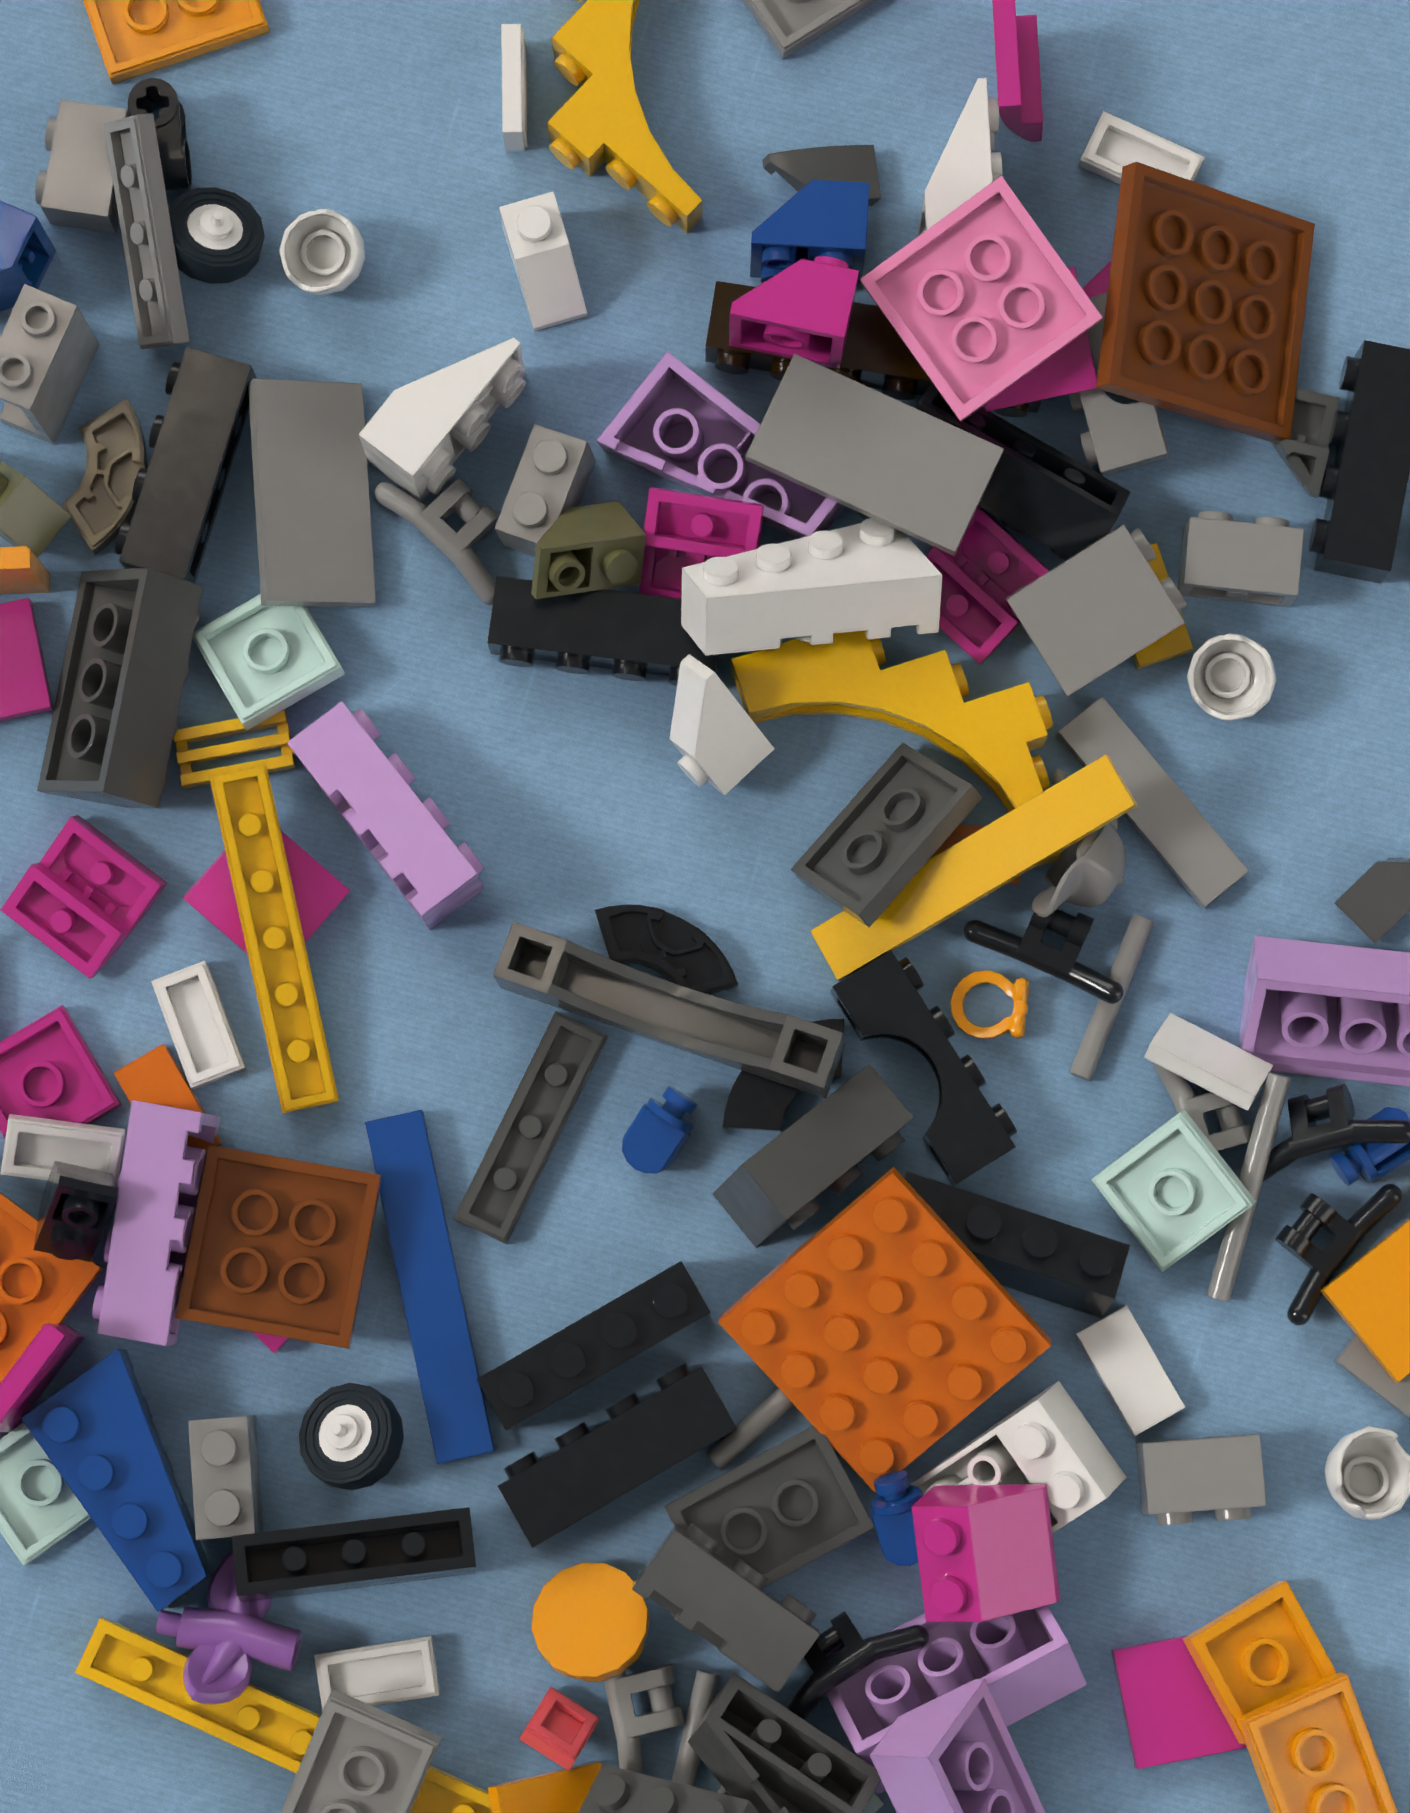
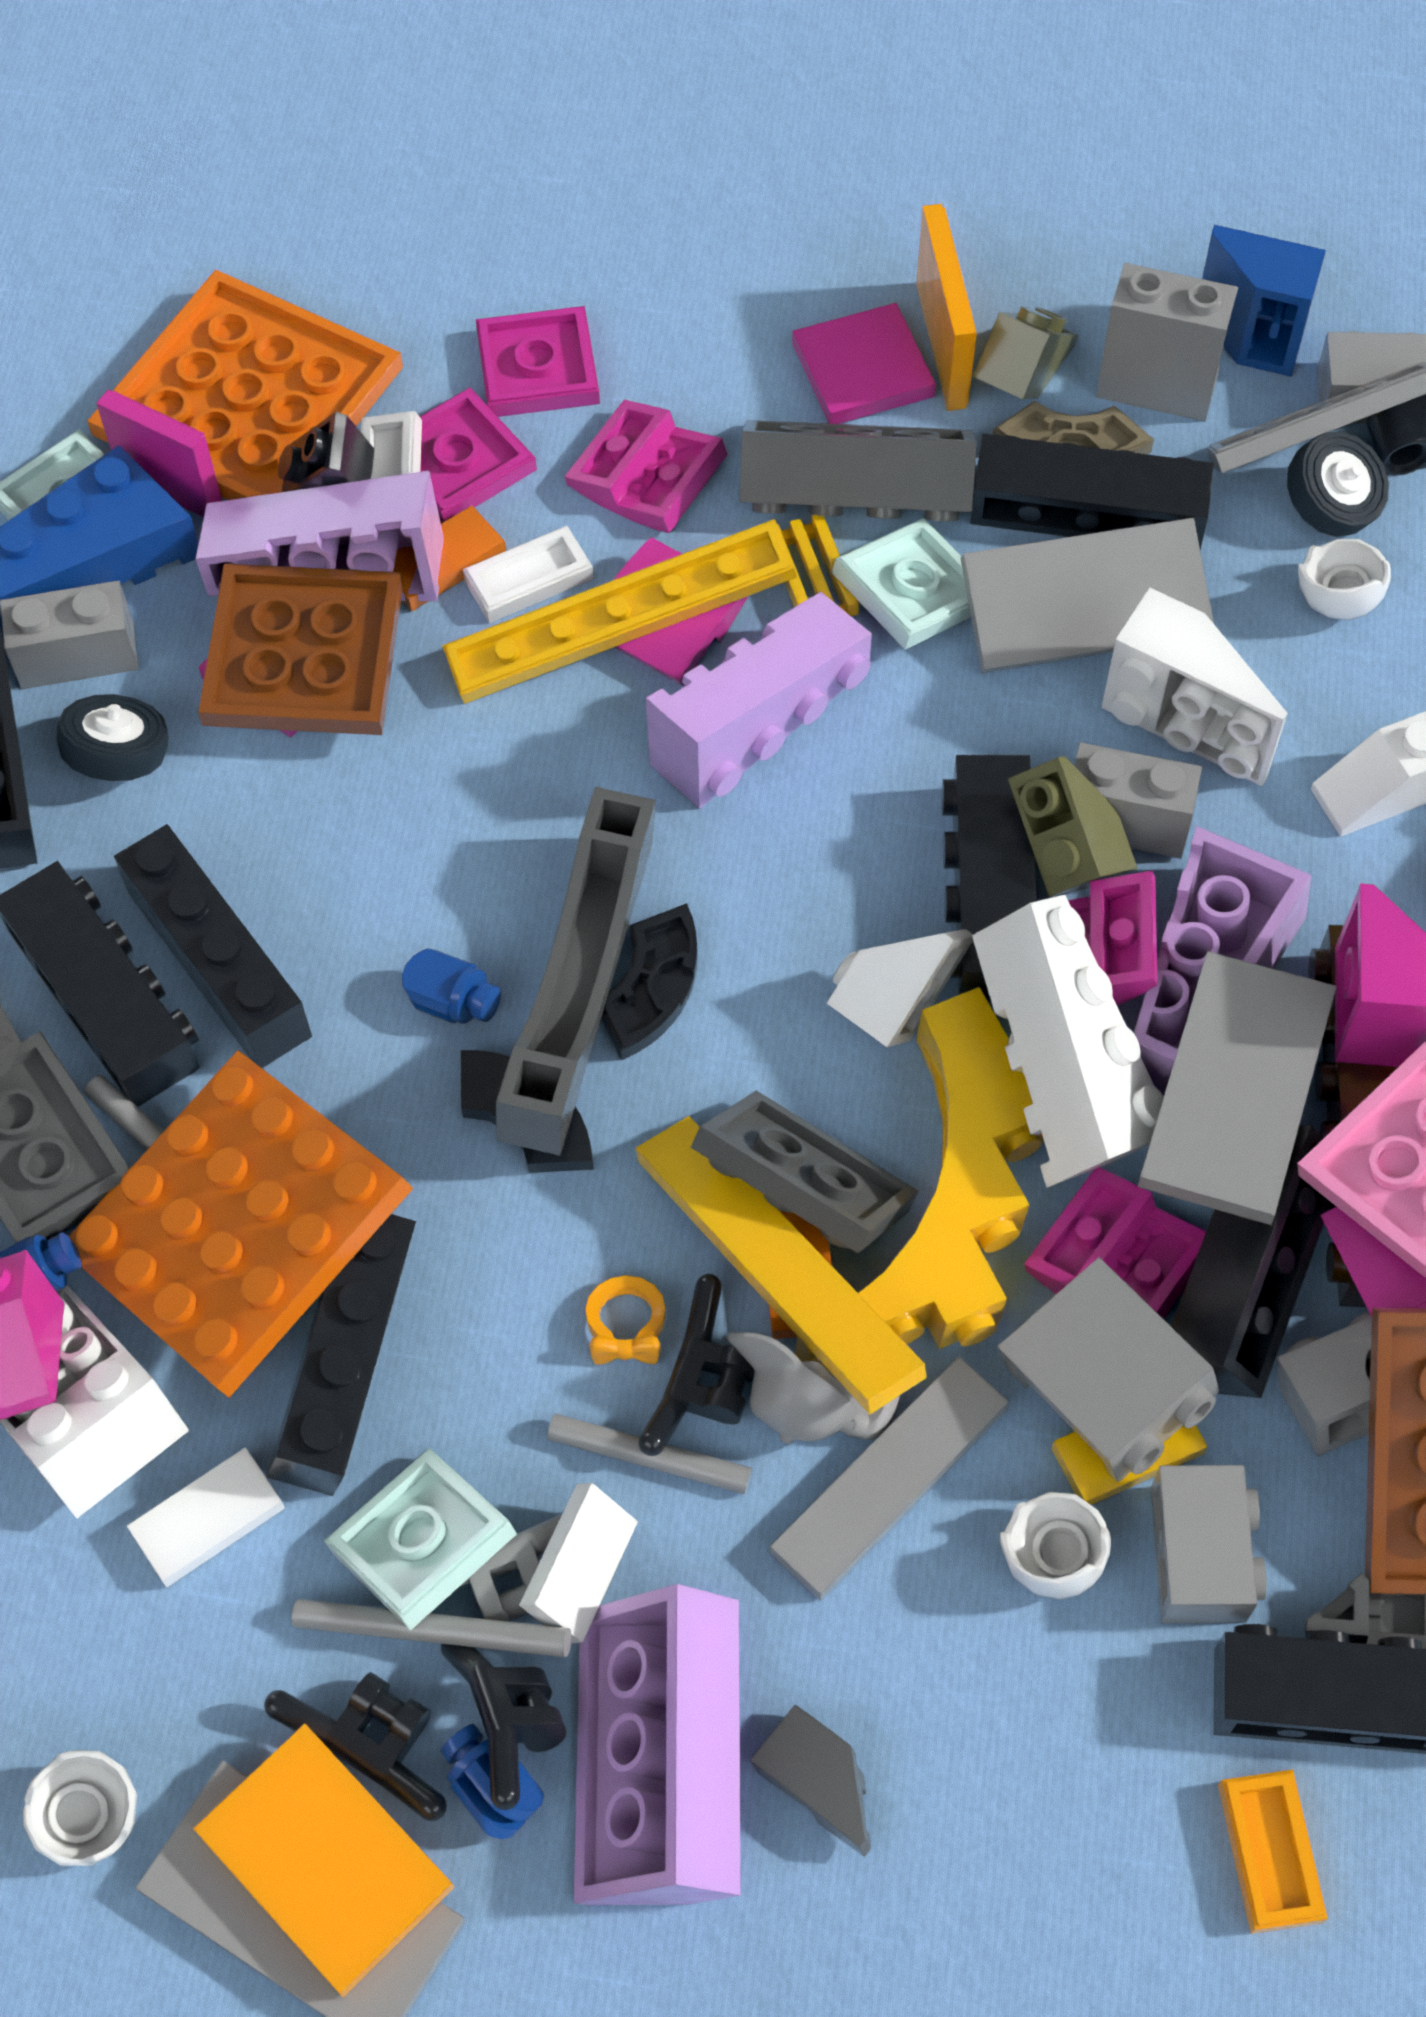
camera: 85 degrees right, 20 degrees down
(430, 1287) = (284, 794): blue tile -> none
(454, 545) = (1082, 705): light grey piece -> none
(530, 1127) = (447, 874): dark grey tile -> none
(813, 1156) = (433, 1136): dark grey wedge -> none
(885, 1004) = (480, 1295): black arch -> none
(1201, 1476) = (77, 1604): light grey brick -> none

